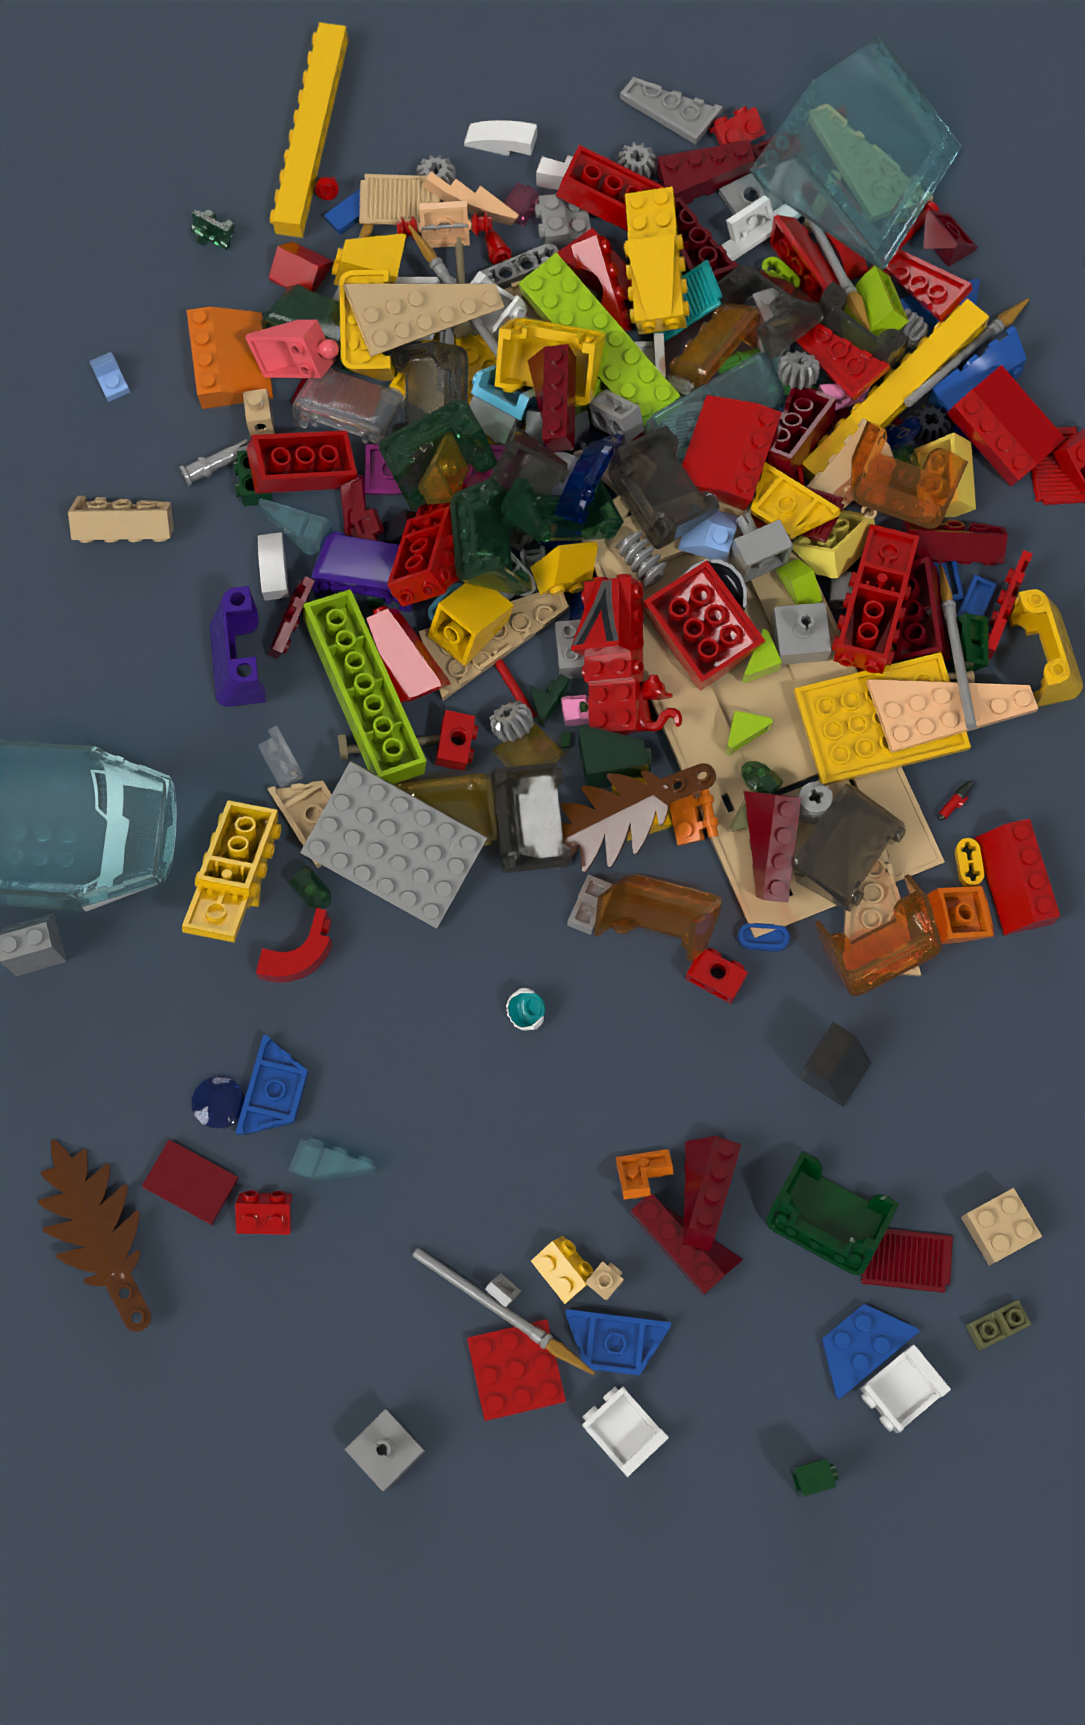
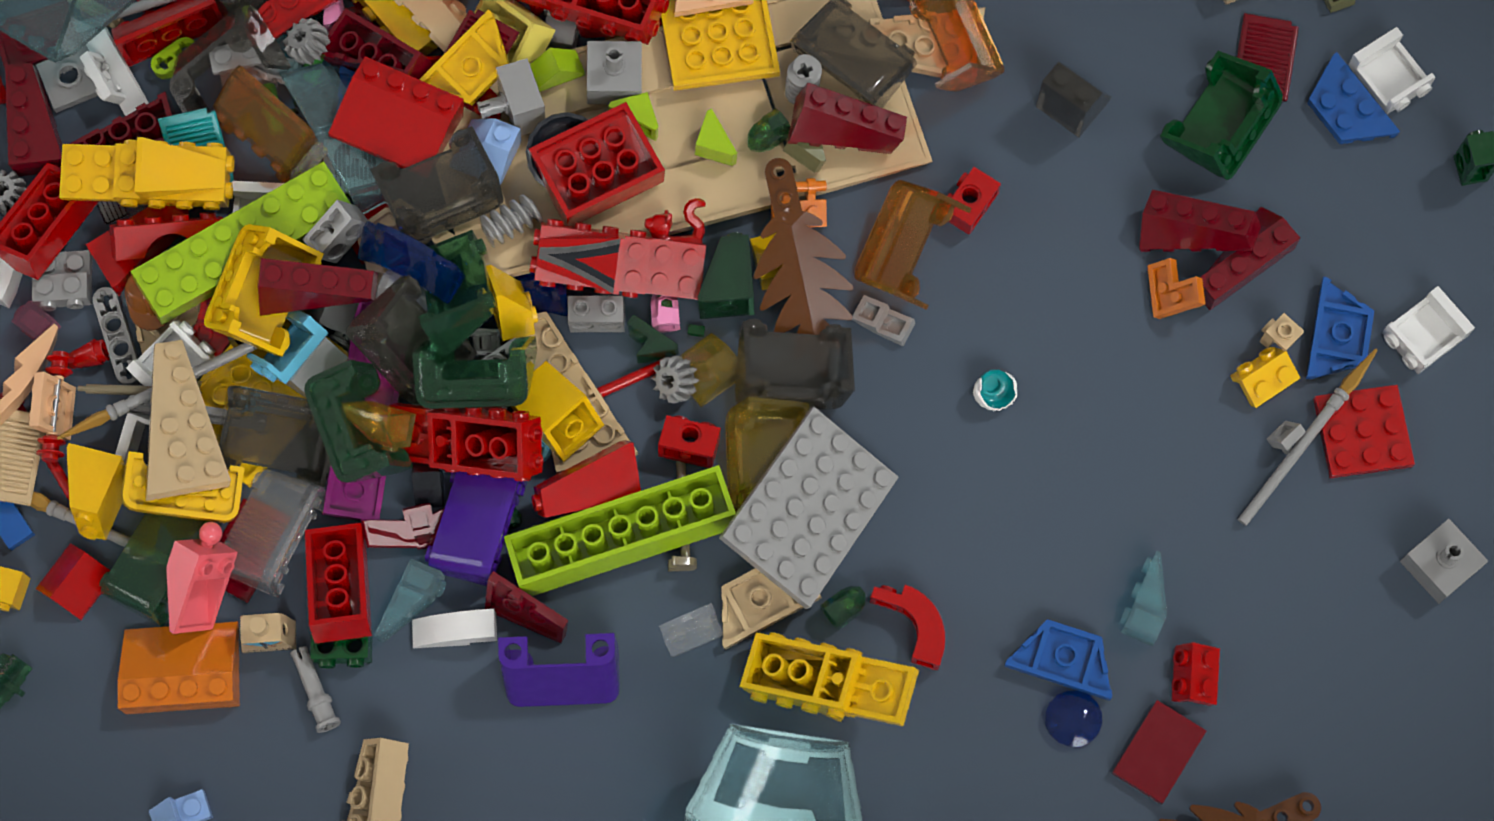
camera: 85 degrees left, 0 degrees up
(772, 941) = (936, 144): blue tile -> none

